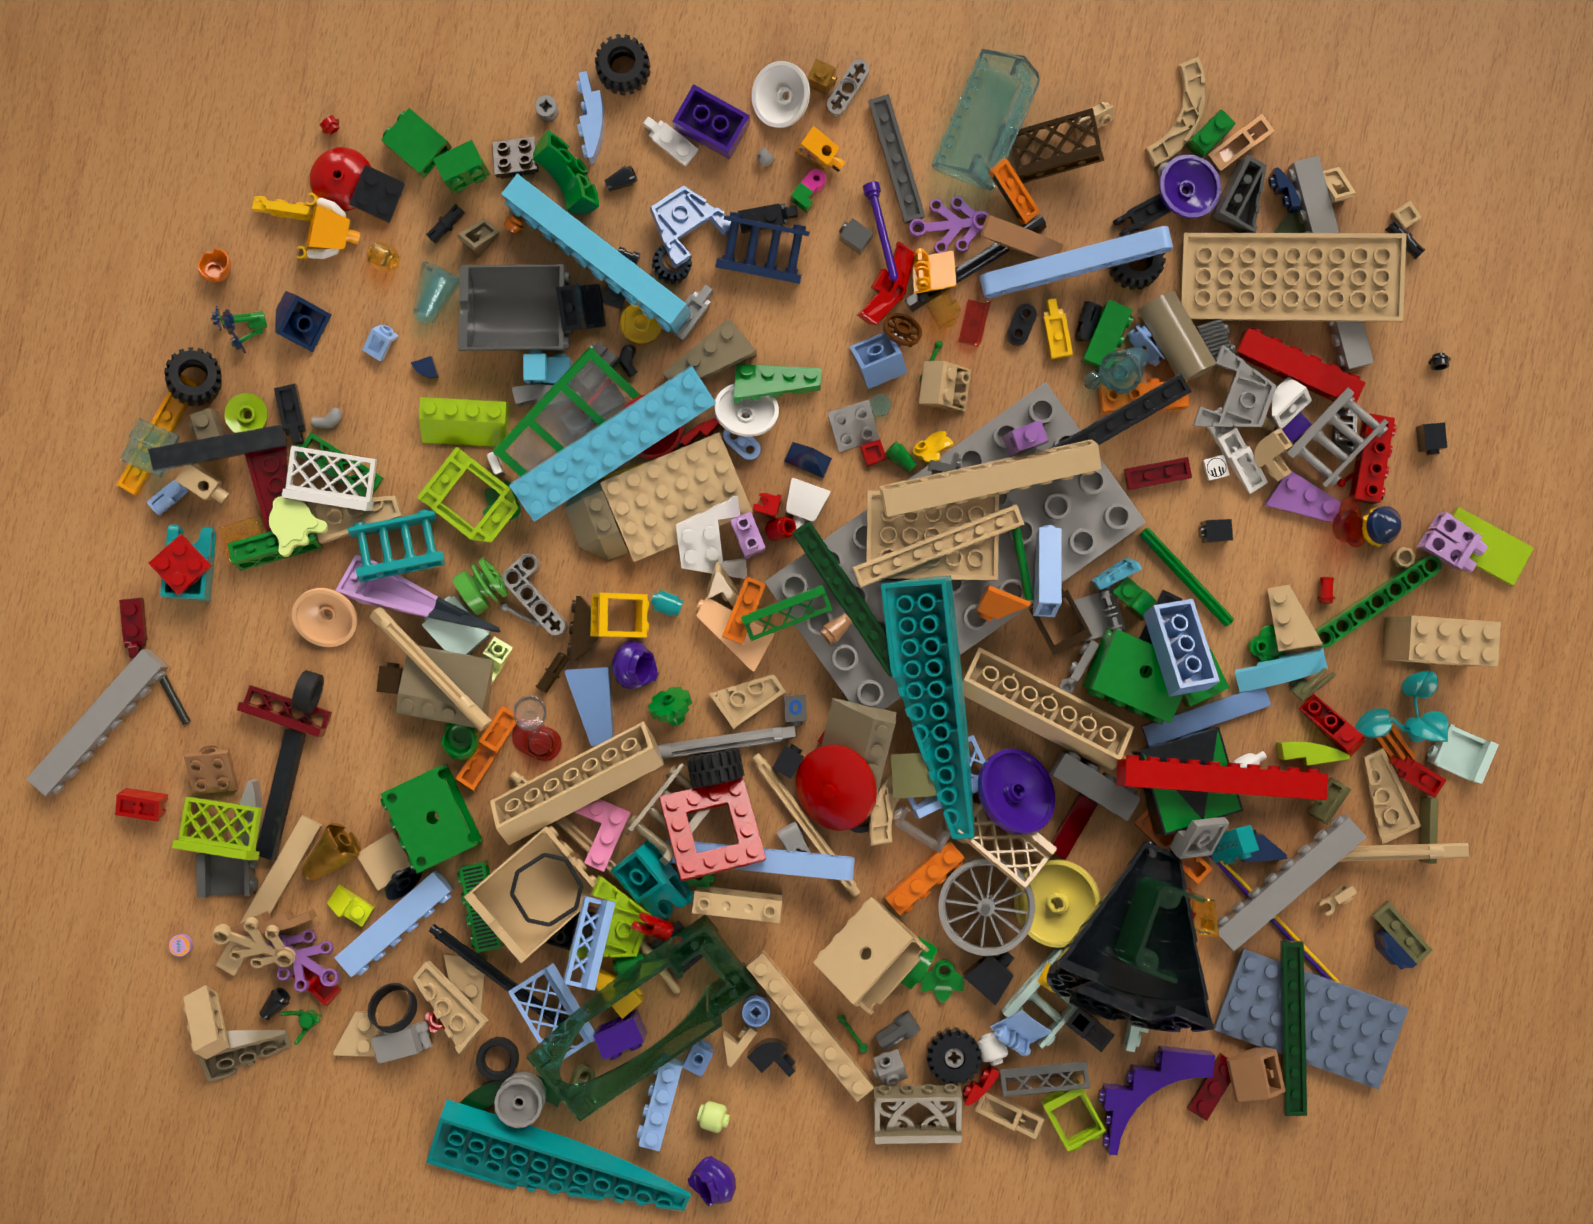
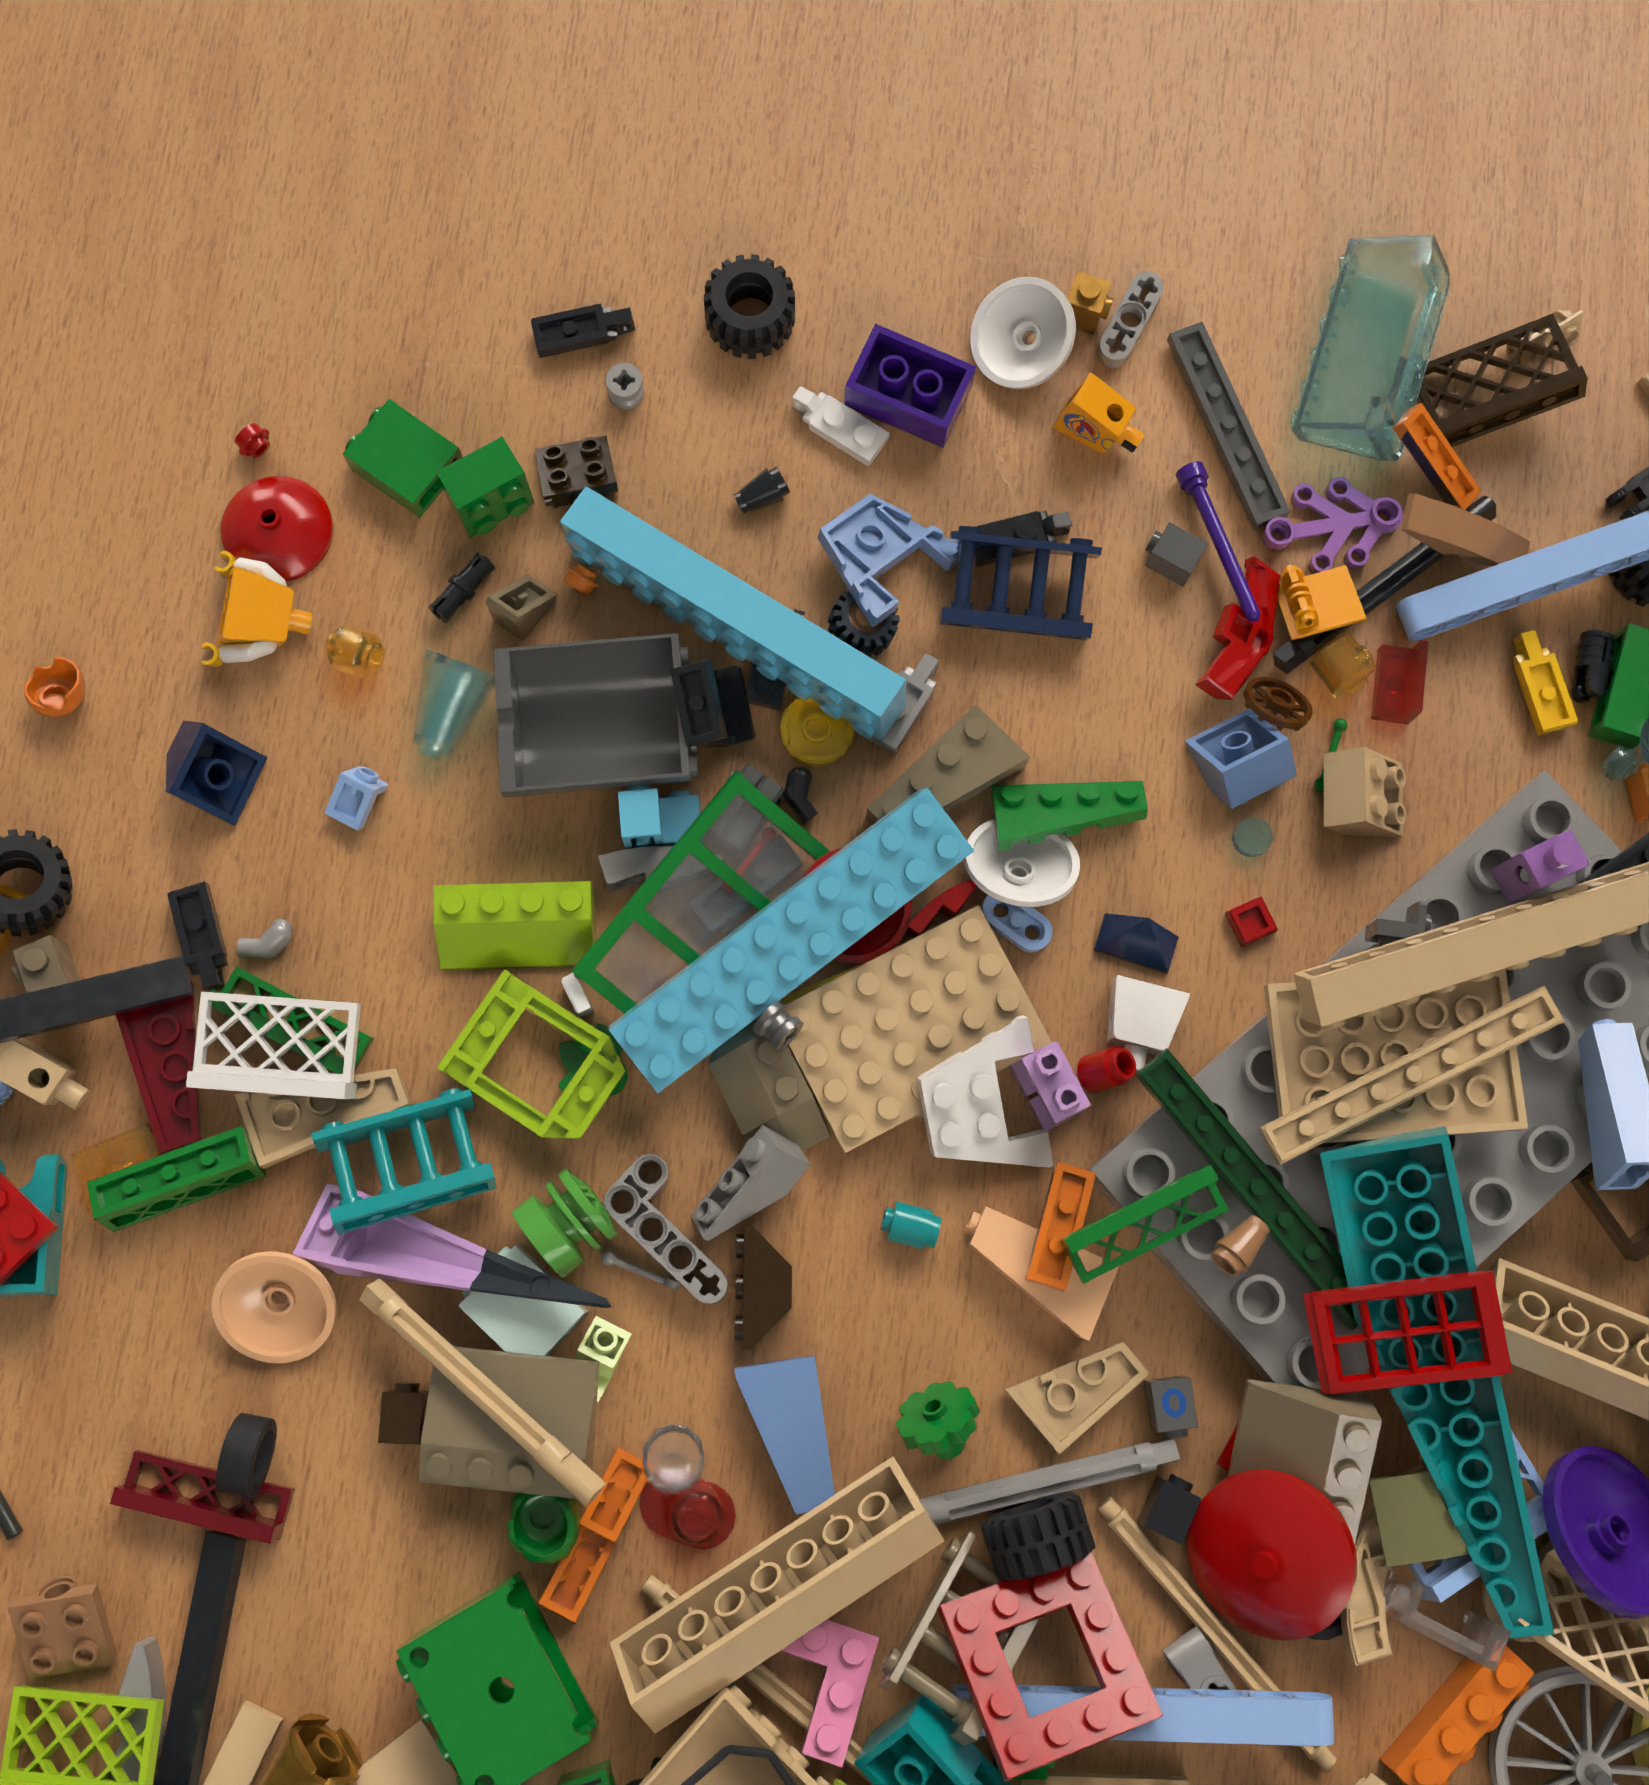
camera: 10 degrees left, 10 degrees down
(240, 405) = (106, 929): lime dish -> none
(254, 321) = (128, 778): plant -> none
(282, 208) = (174, 584): yellow hinge -> none
(292, 522) = (206, 1133): yellowish green tile -> none
(377, 193) = (339, 546): black plate -> none
(426, 367) = (440, 835): dark blue tile -> none
(522, 70) = (580, 329): none -> black hinge
(552, 672) = (708, 1375): dark brown axle -> none
(568, 173) = (668, 487): green brick -> none
(587, 570) = (754, 1180): none -> light grey slope
(593, 123) = (704, 395): light blue slope -> none
(599, 615) = (793, 1255): yellow window -> none
(601, 491) = (778, 1026): none -> flat silver wheel
(634, 665) = (862, 1348): dark purple helmet -> none
(721, 583) = (1008, 1179): tan slope -> none
(765, 157) = (1004, 438): light grey hinge -> none
(770, 507) = (1084, 1032): red hinge -> none
(811, 184) = (1088, 476): leg -> none
(853, 425) = (1212, 875): light grey hinge -> none
(899, 455) = (1300, 921): green cone -> none
(932, 446) = (1358, 901): yellow plate -> none
(955, 672) = (1488, 1321): none -> red piece
(998, 603) = (1539, 1171): orange slope -> none
(1022, 324) = (1479, 678): black plate -> none
(1022, 562) = (1564, 1097): green bar -> none

